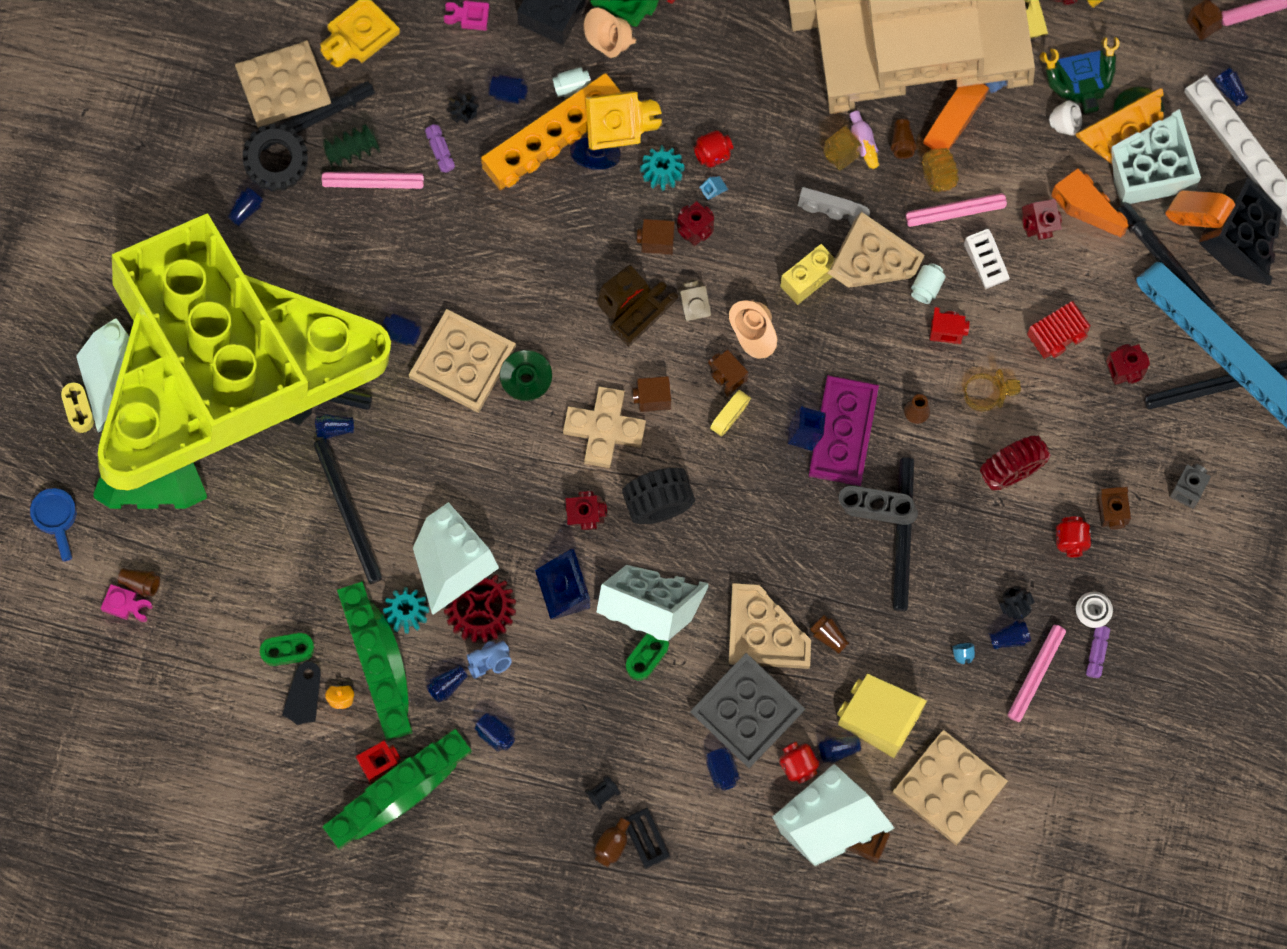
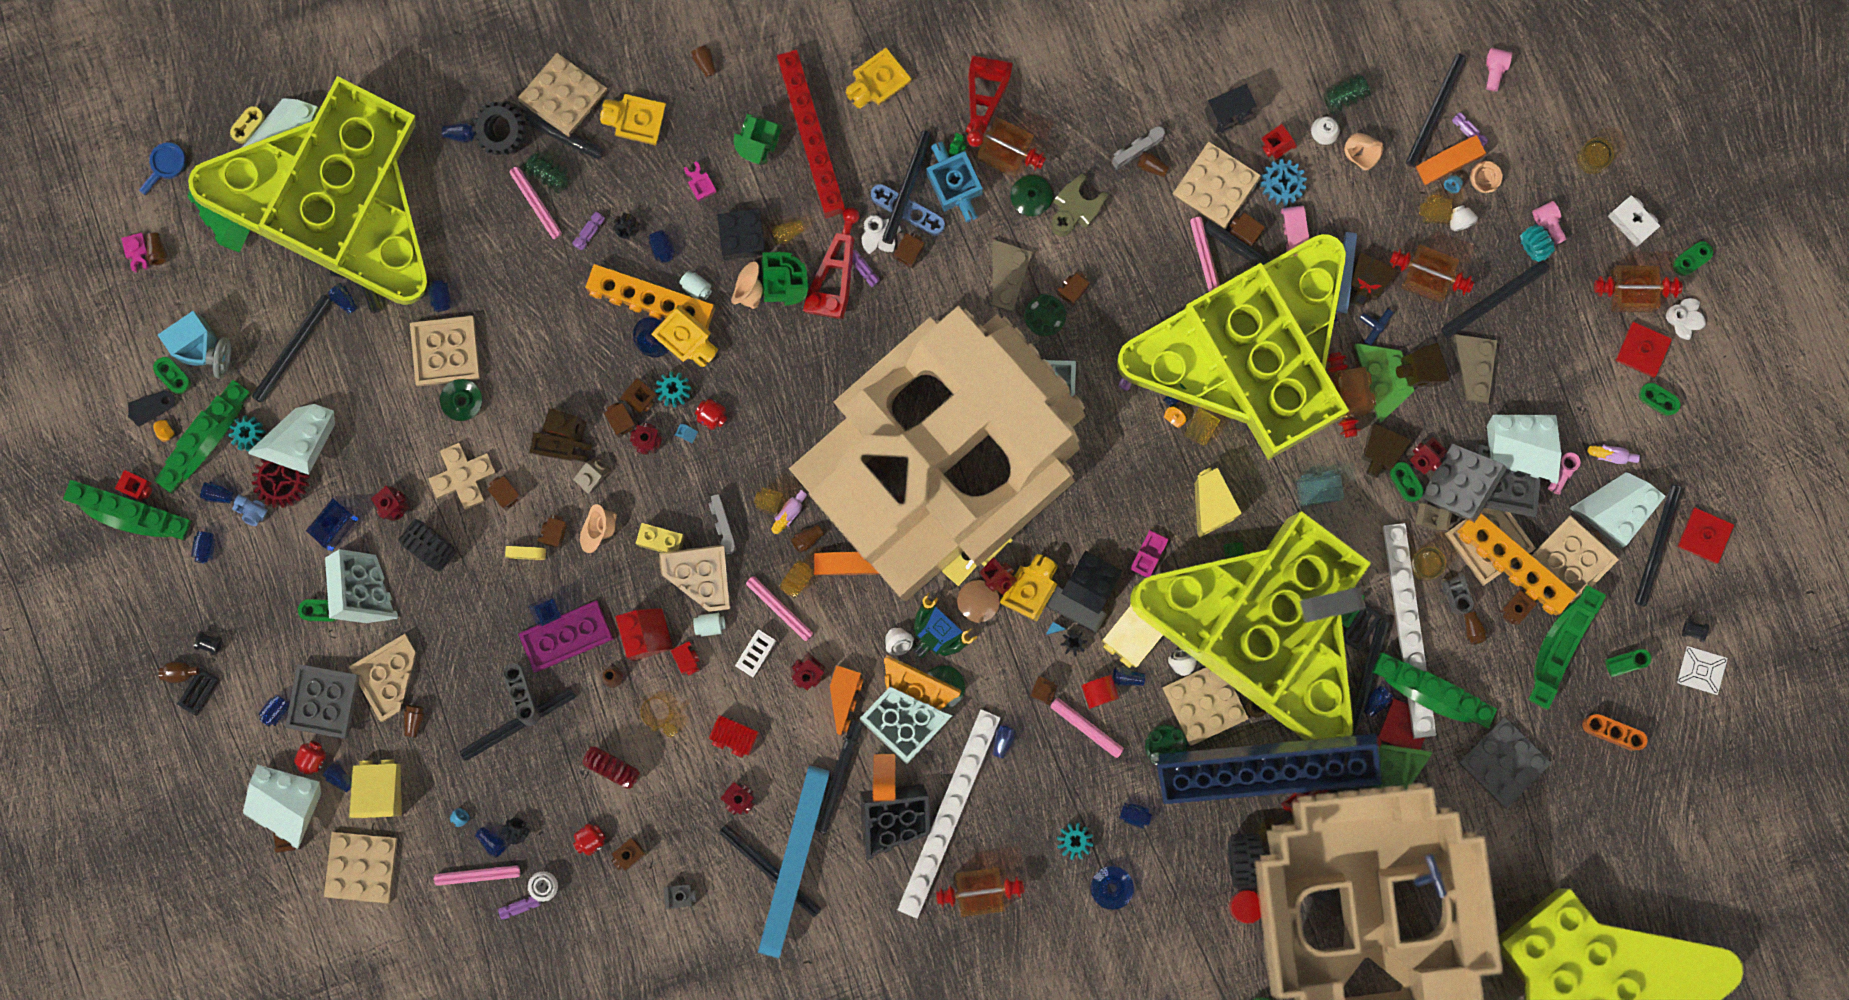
camera: 60 degrees right, 10 degrees up
(271, 601) = (195, 342): none -> medium azure piece
(645, 203) = (640, 390): none -> reddish brown brick
(894, 351) = (644, 633): none -> red slope
(1074, 25) = (977, 601): none -> medium nougat dish

